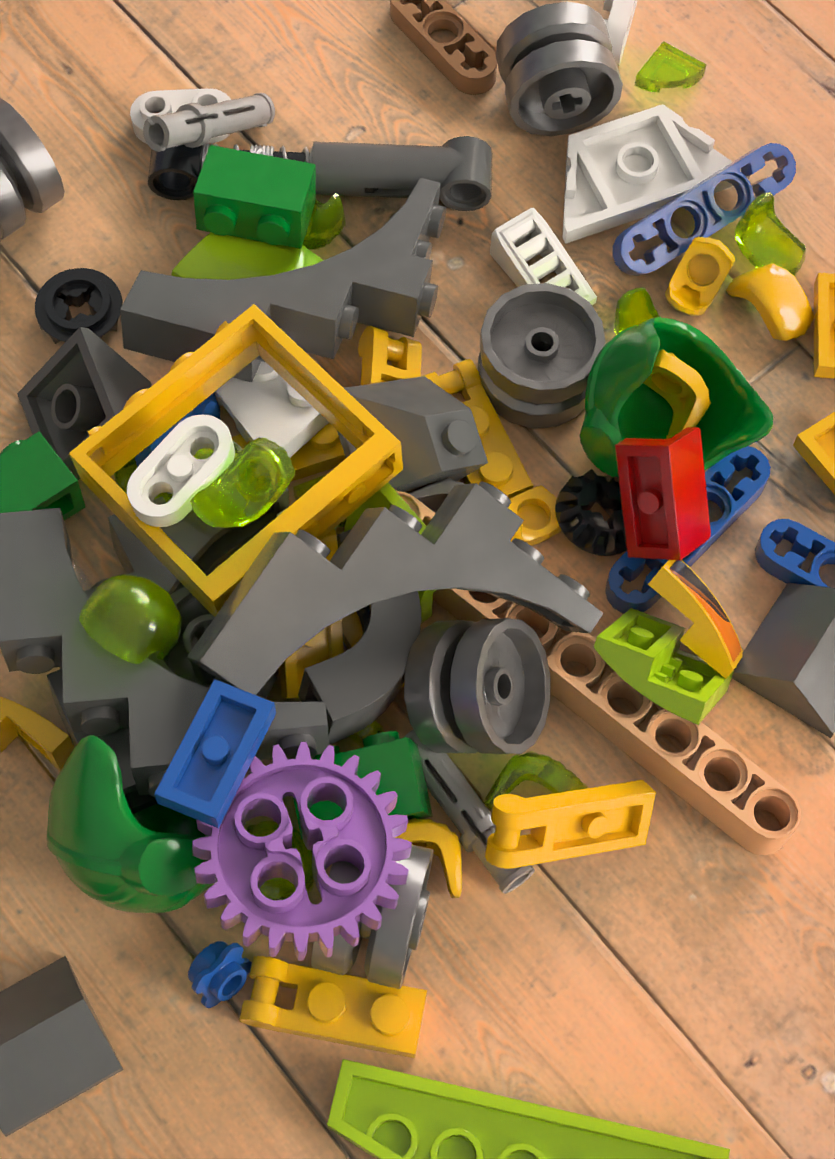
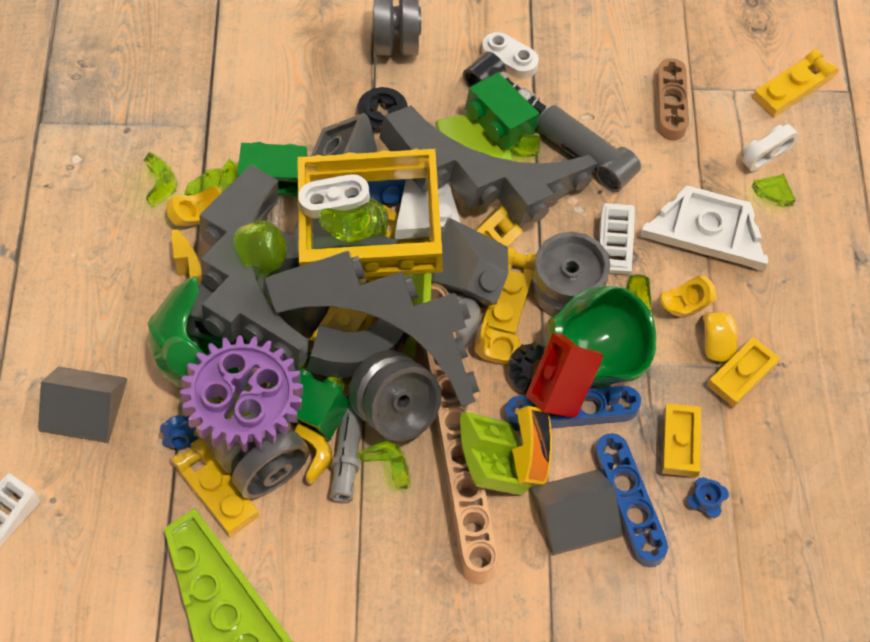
camera: 40 degrees right, 5 degrees down
(197, 124) = (502, 59): light grey pin -> none
(215, 753) = (238, 322): blue plate -> none
(558, 69) = (706, 149): flat silver wheel -> none
(569, 824) = (382, 487): yellow plate -> none
(682, 390) = (624, 336): yellow hair -> none
(702, 205) = (723, 261): beam -> none
(766, 239) = (744, 303): clear neon green hair -> none

